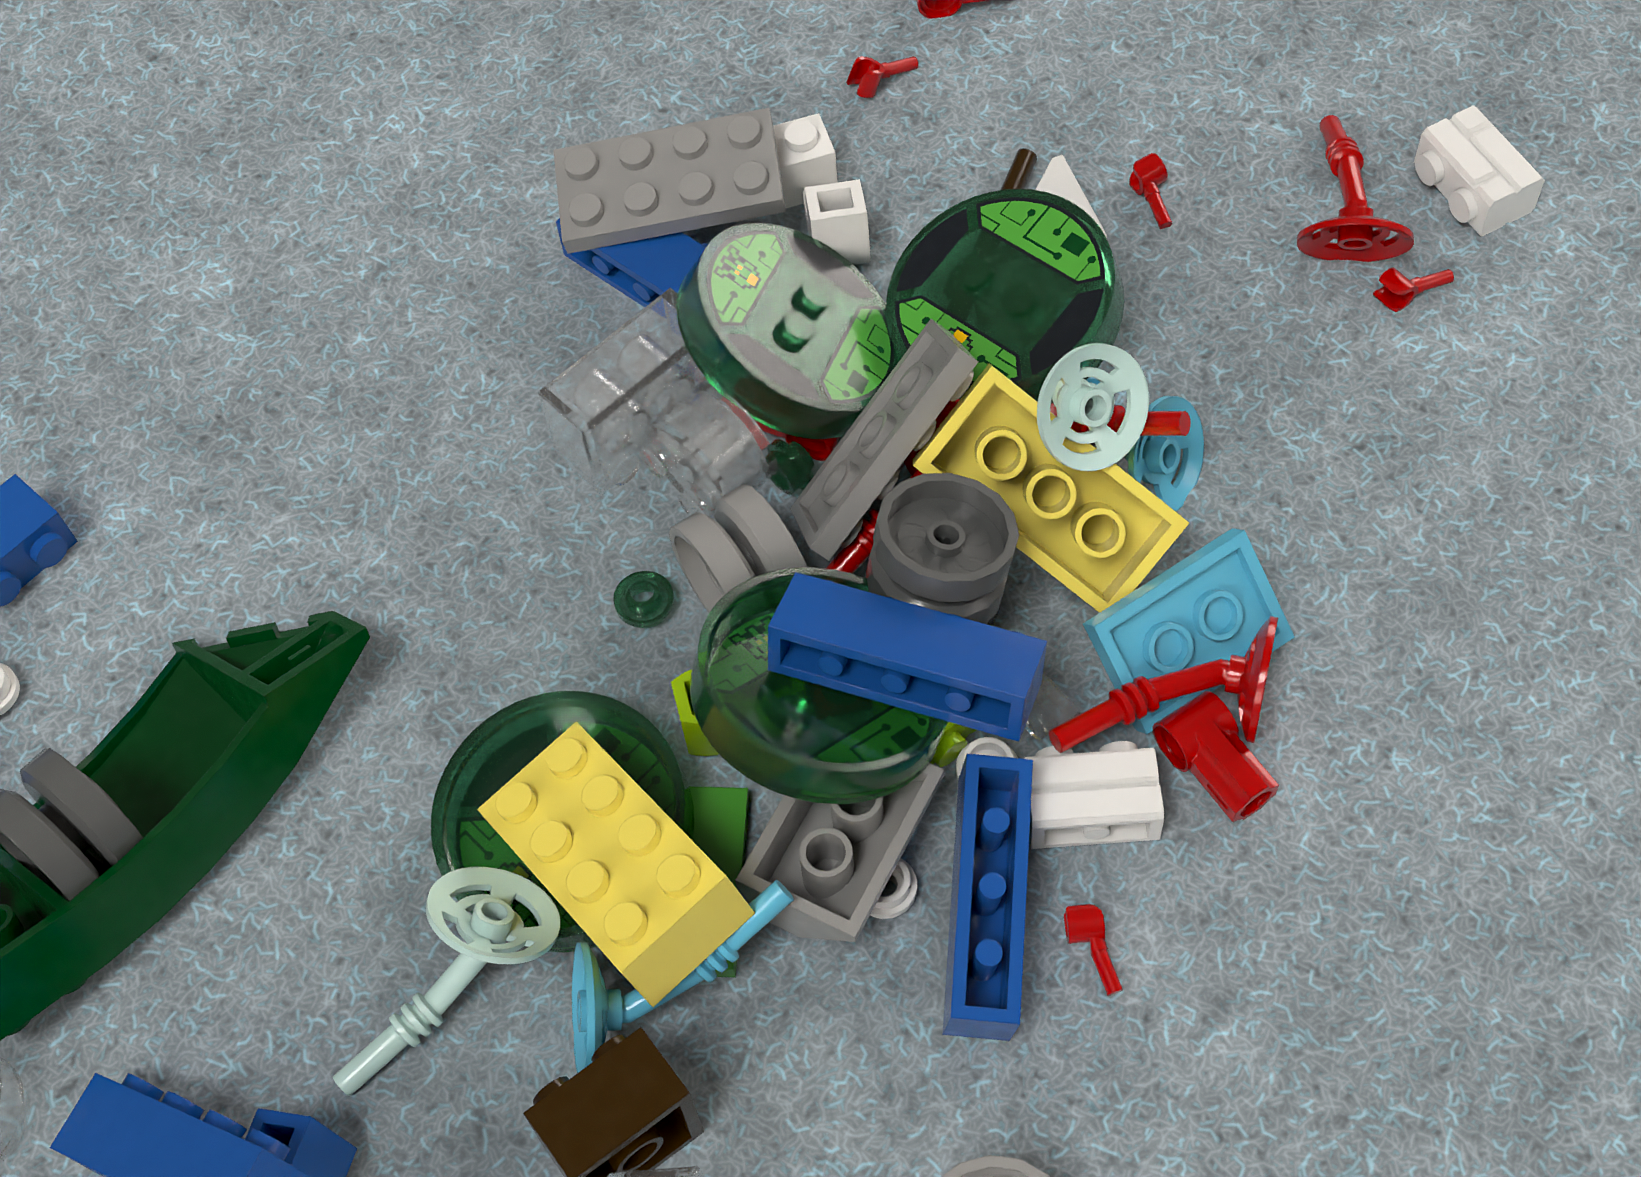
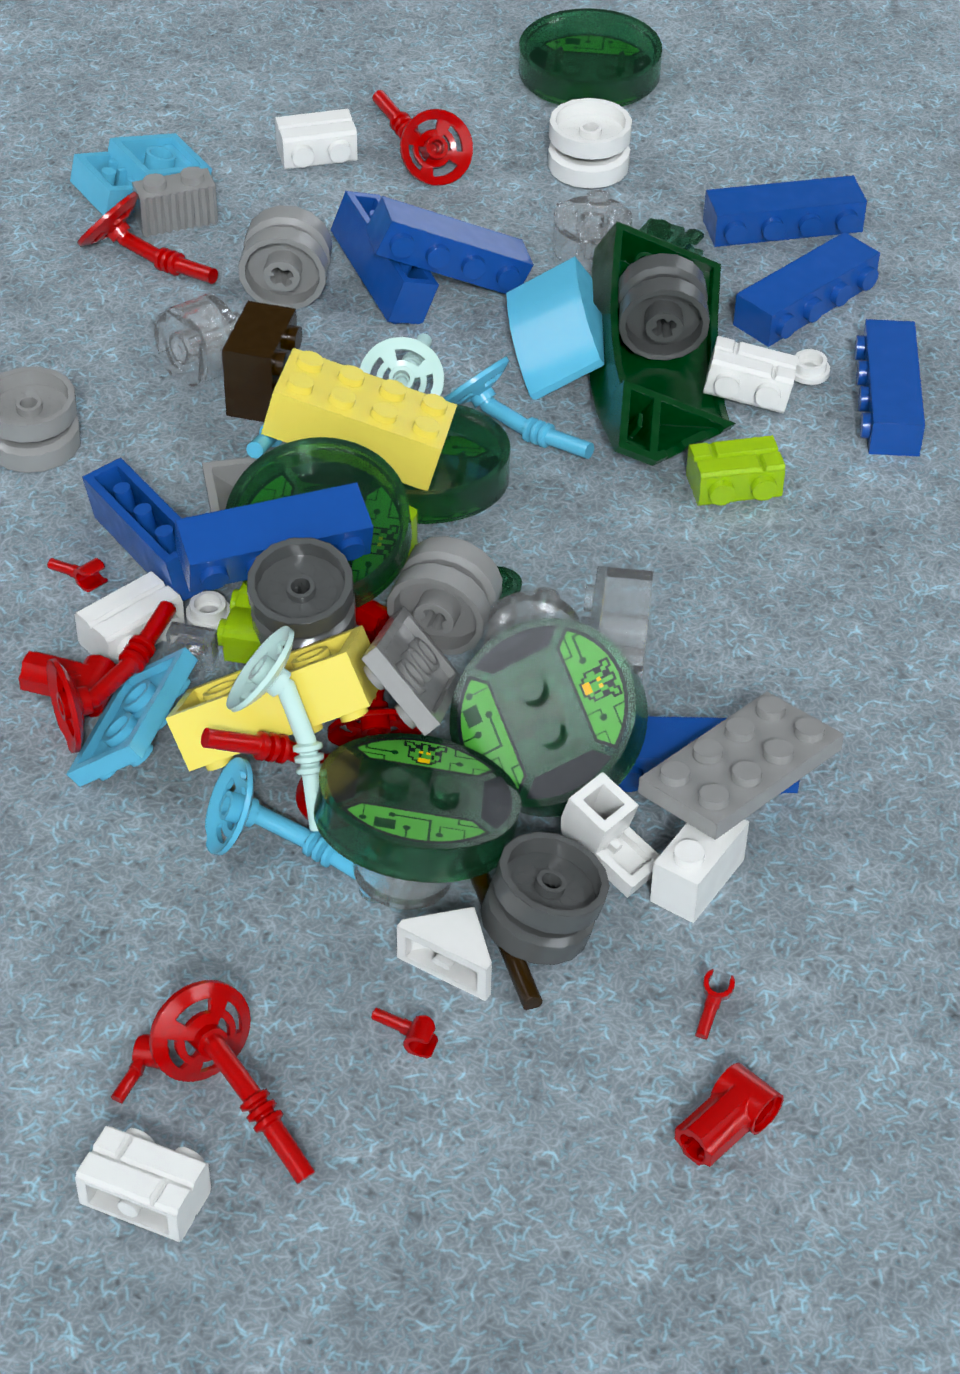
camera: 135 degrees right, 15 degrees down
(75, 696) = (750, 374): none -> white brick
(203, 915) = (556, 328): none -> medium azure slope
(249, 575) = (735, 470): none -> lime brick
(396, 864) = (536, 431): none -> medium azure dish
(942, 168) = (544, 898): none -> dark grey wheel

